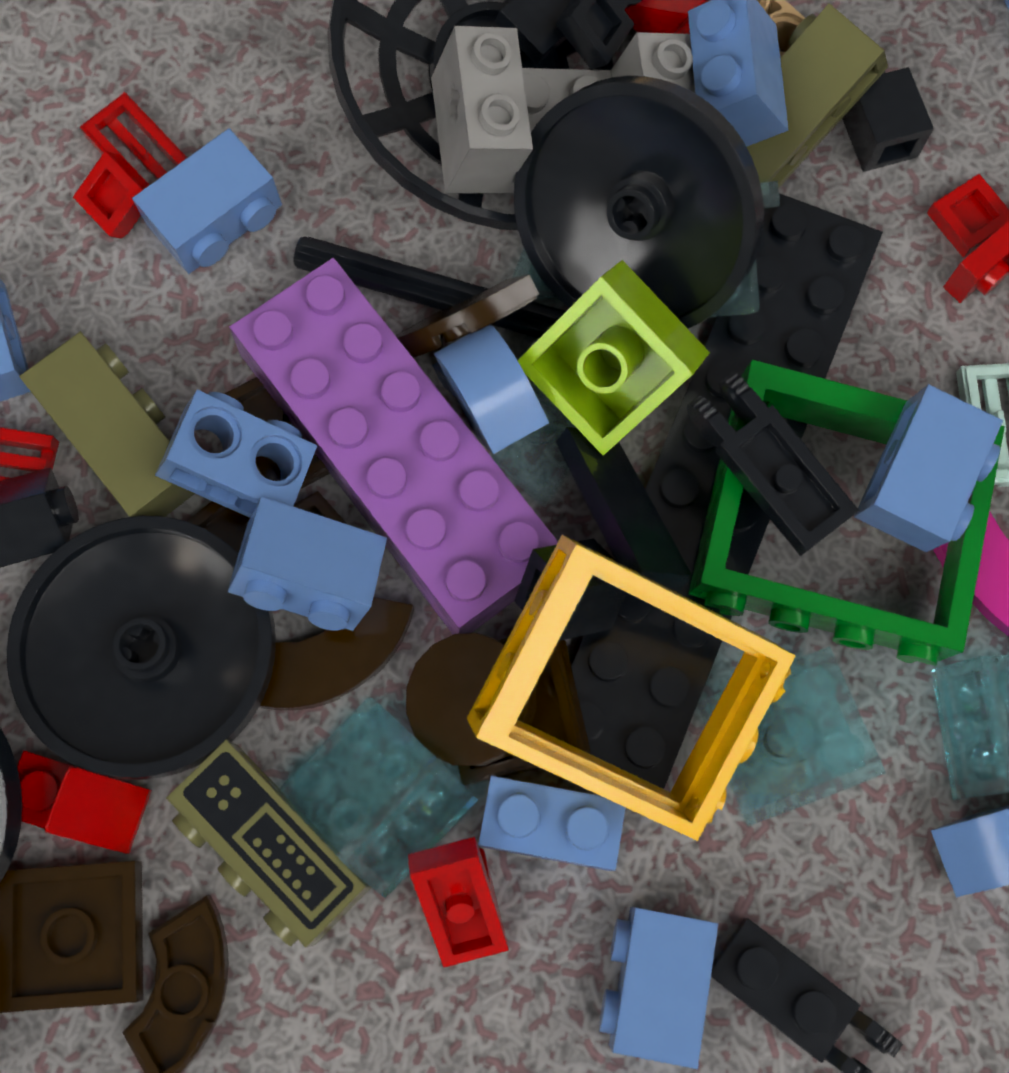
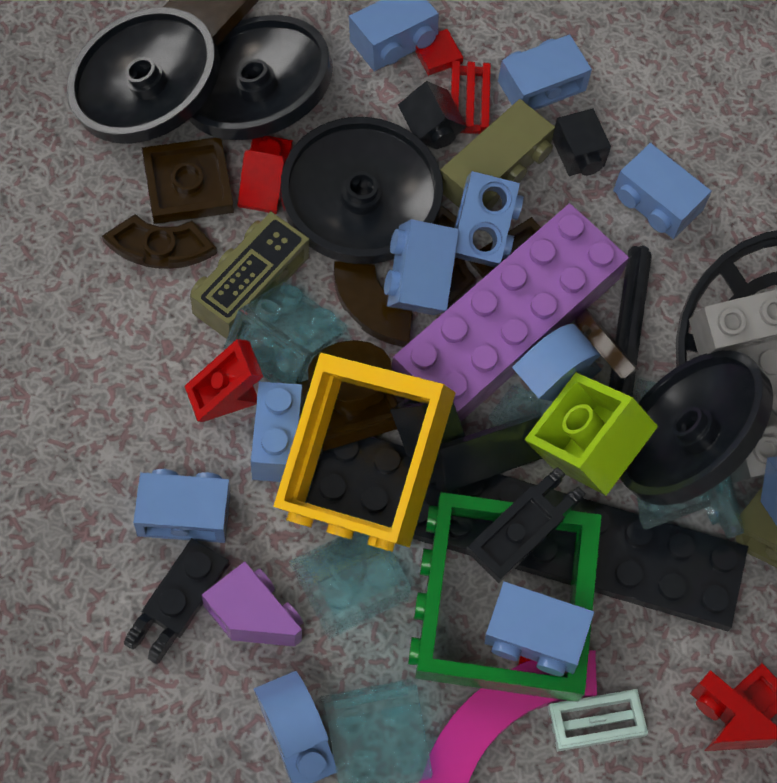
camera: 75 degrees right, 10 degrees down
(107, 300) = (581, 143): none -> black brick
(108, 118) = (708, 155): red tile -> none
(109, 194) = (659, 132): red tile -> none
(836, 892) = (249, 611): none -> medium lavender slope

